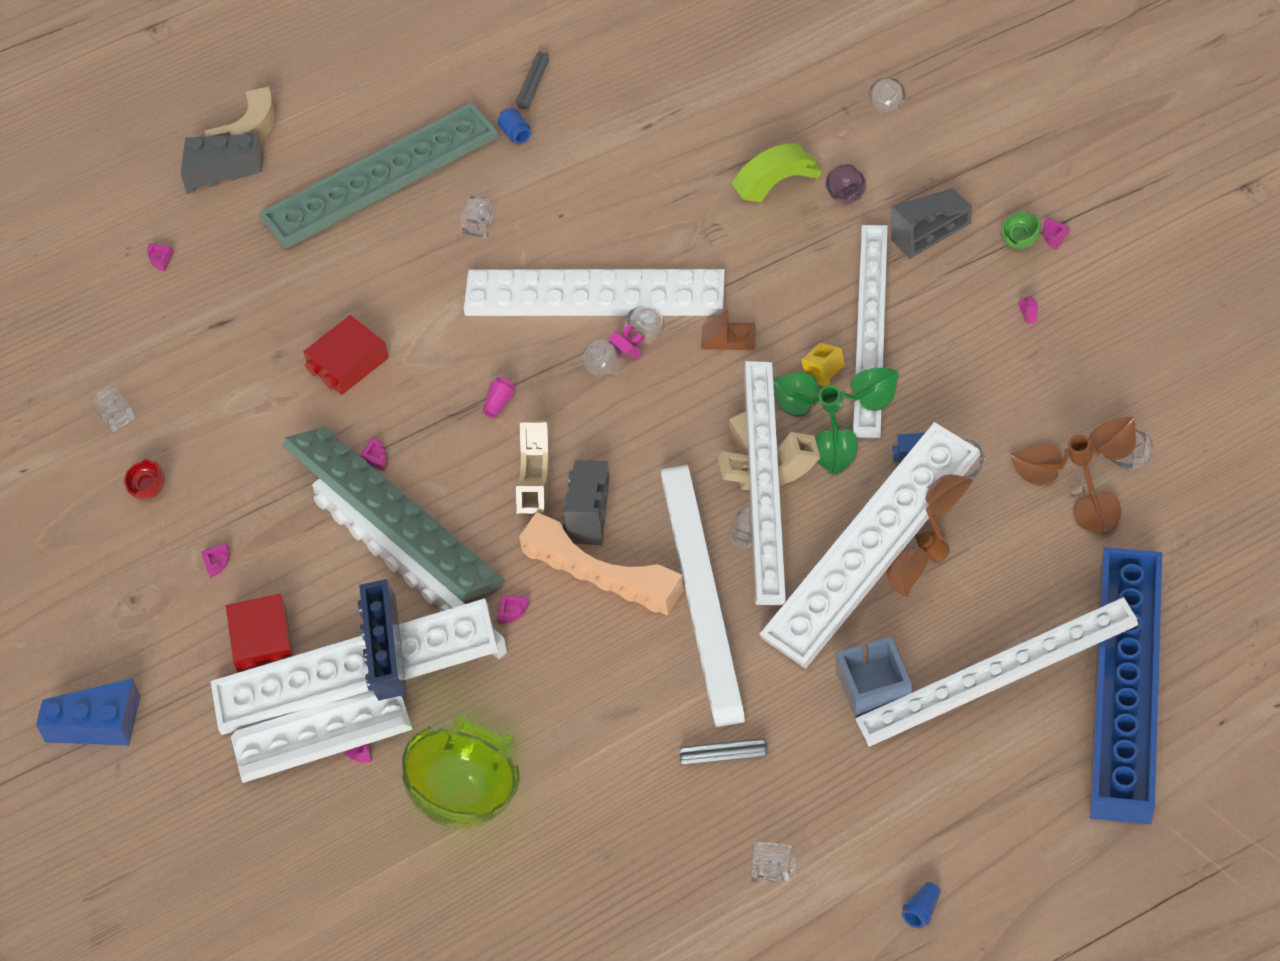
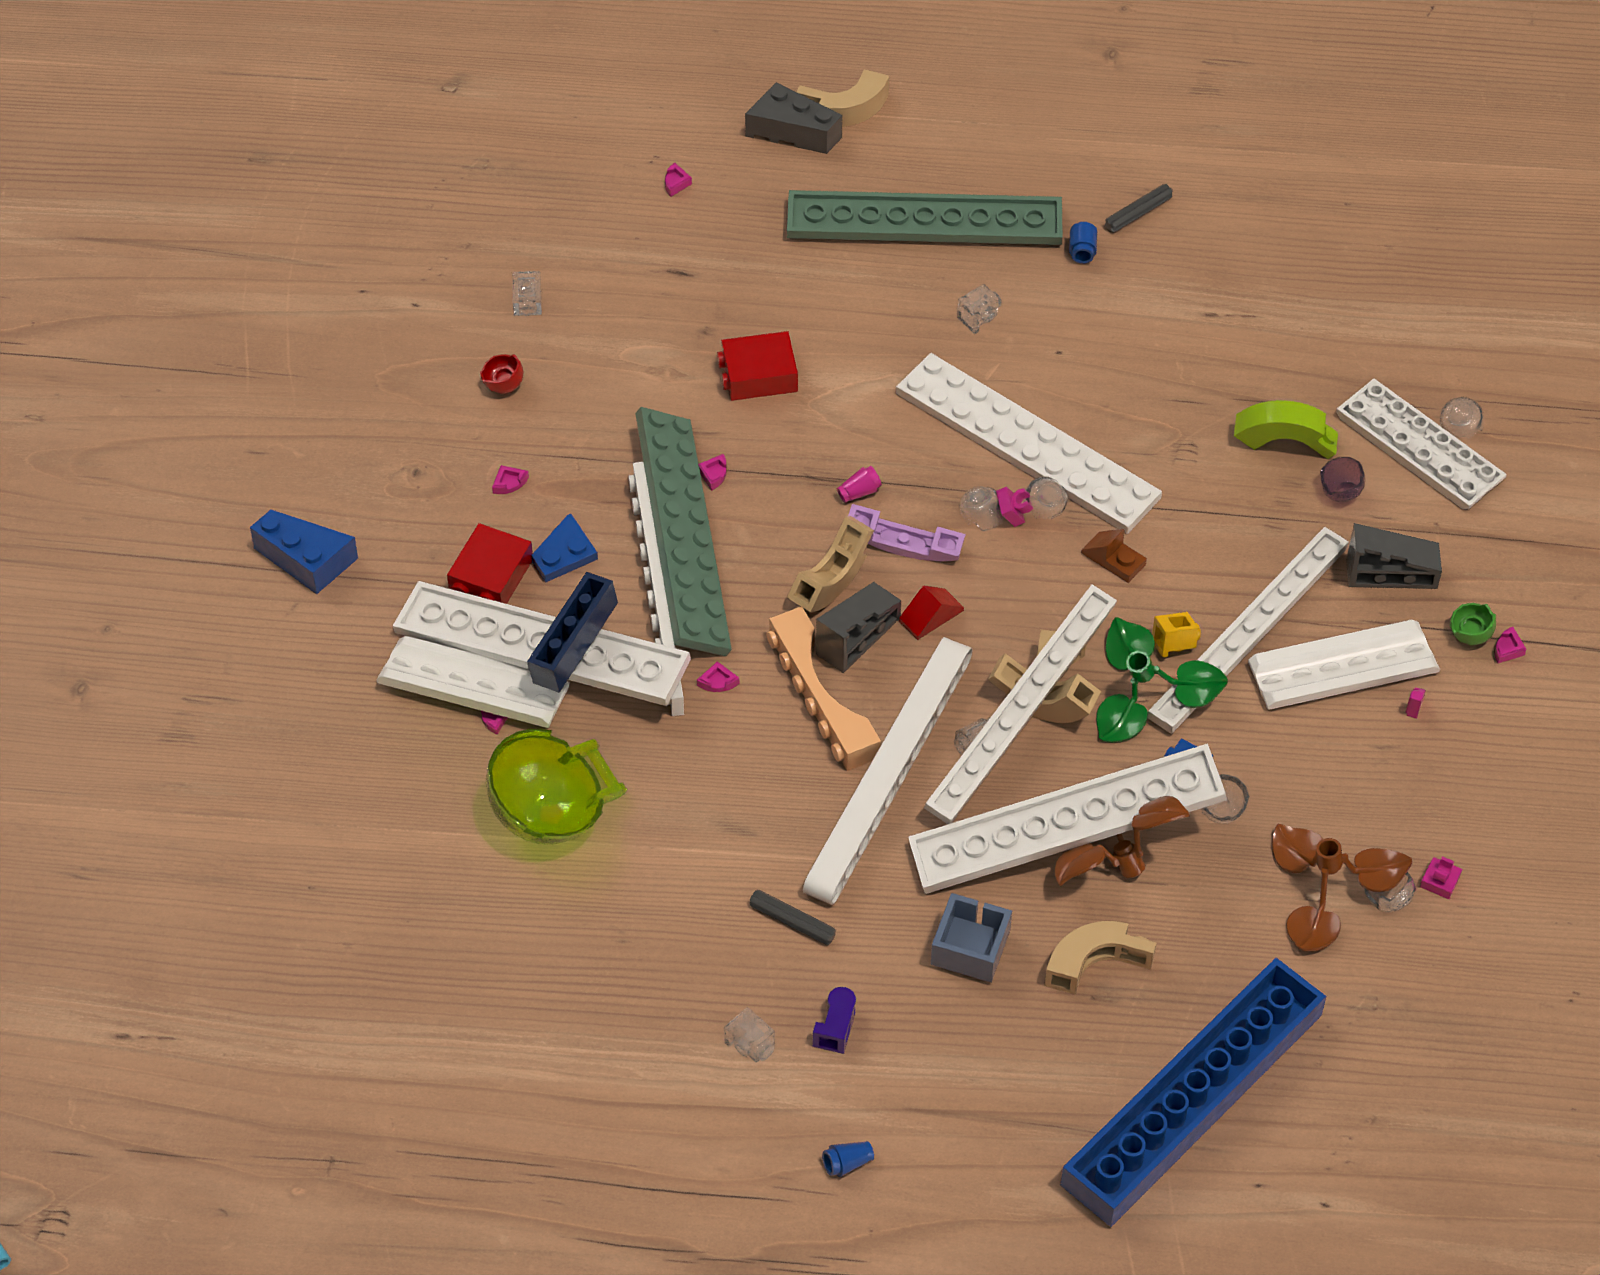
camera: 30 degrees right, 0 degrees up
(307, 586) = (563, 550): none -> blue wing
(571, 416) = (909, 541): none -> lavender slope
(629, 459) = (929, 610): none -> red slope
(824, 800) = (838, 1023): none -> dark purple leg
(874, 131) = (1420, 444): none -> white plate
(955, 315) = (1342, 664): none -> white plate
(963, 621) = (1093, 944): none -> tan arch
(996, 671) = (1083, 1003): white plate -> none
(1152, 420) = (1441, 877): none -> dark pink tile

